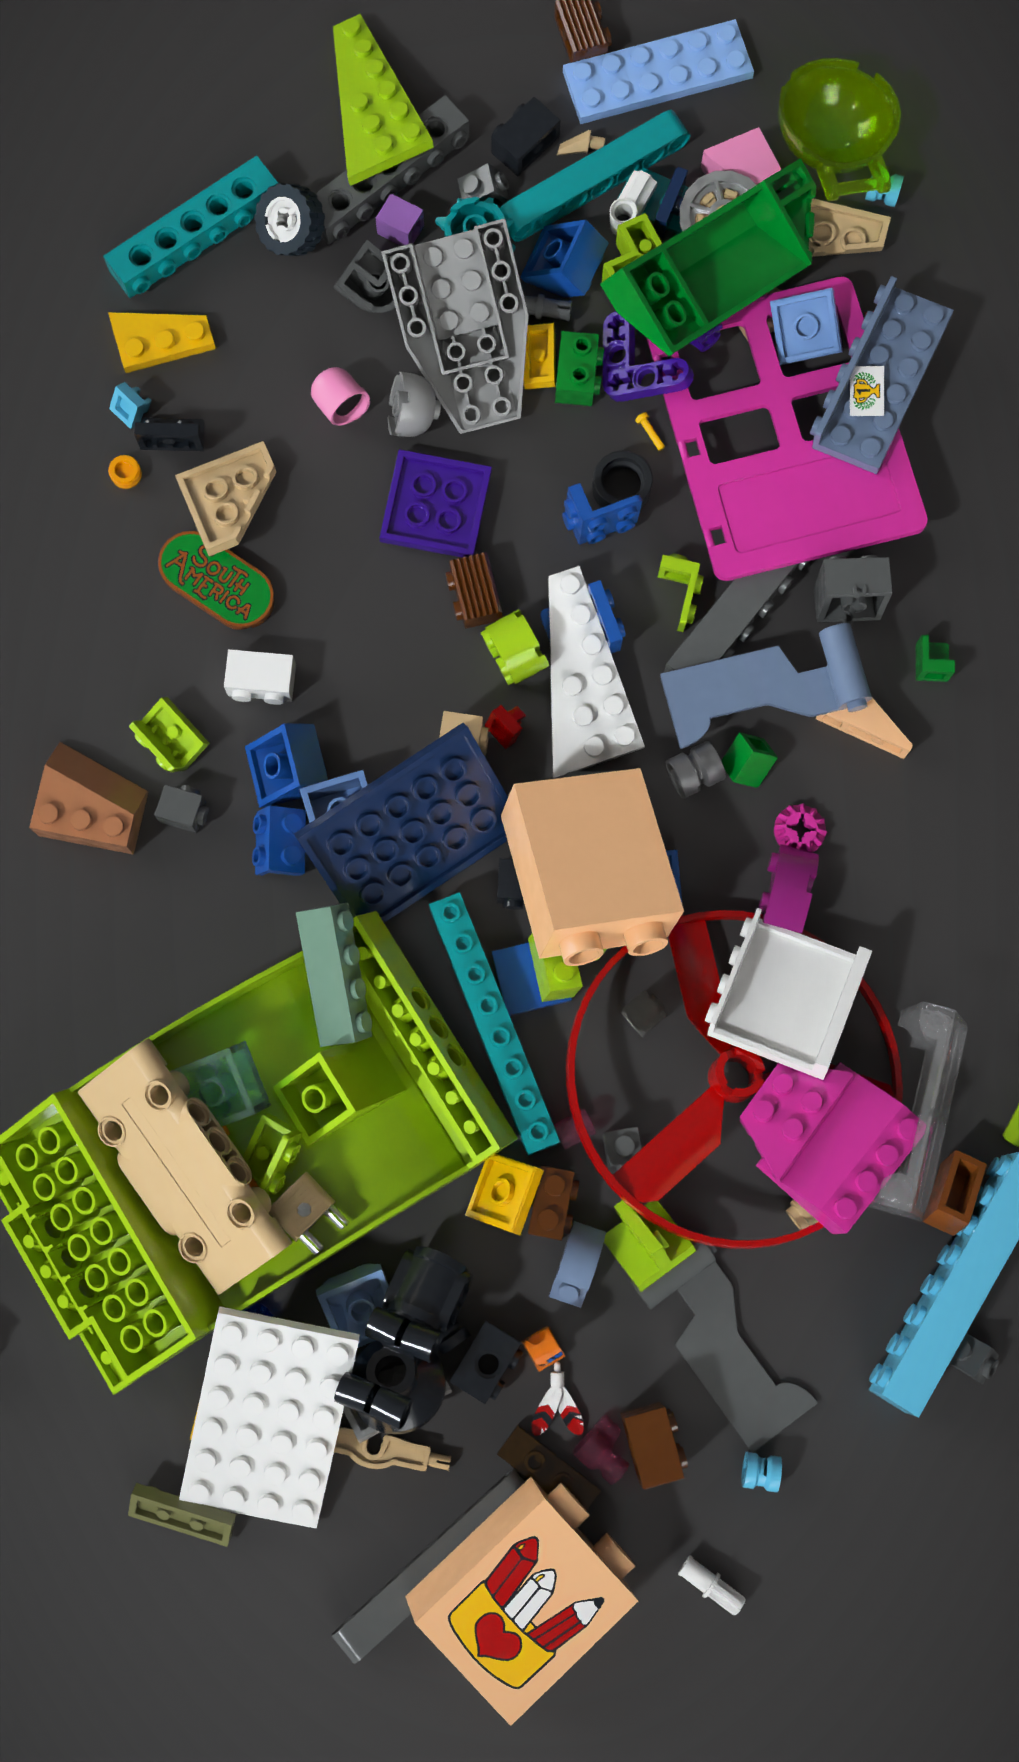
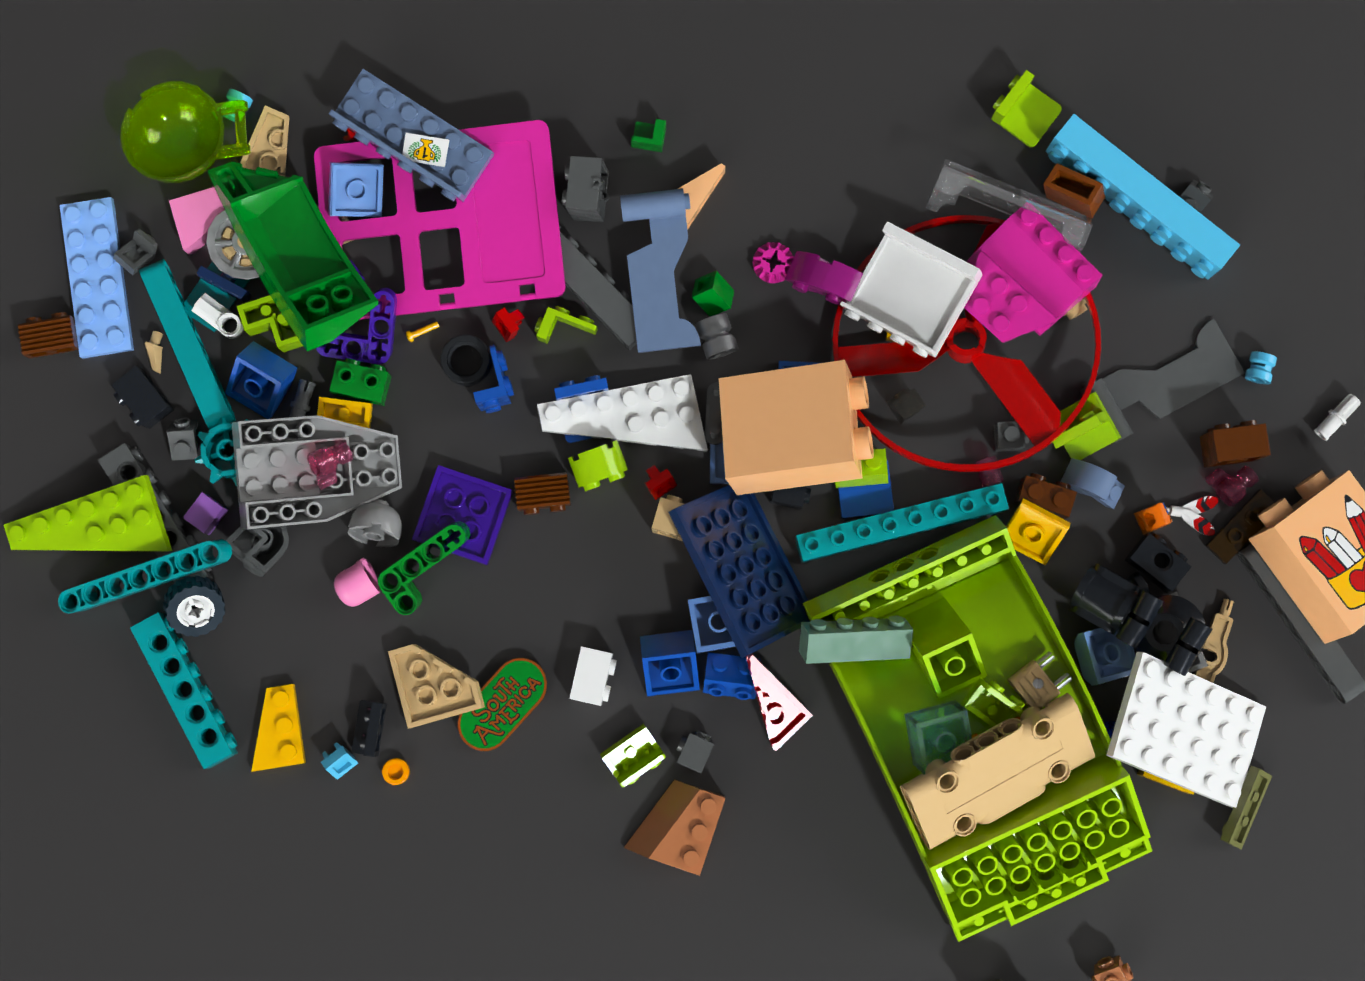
camera: 80 degrees left, 5 degrees up
(245, 903) = (779, 707): none -> wing
(317, 161) = (133, 579): none -> teal beam
(375, 464) = (426, 560): none -> green beam
(474, 332) = (325, 462): none -> clear pink piece
(675, 525) = (507, 323): none -> red tile
(692, 106) = (137, 252): none -> dark grey bracket

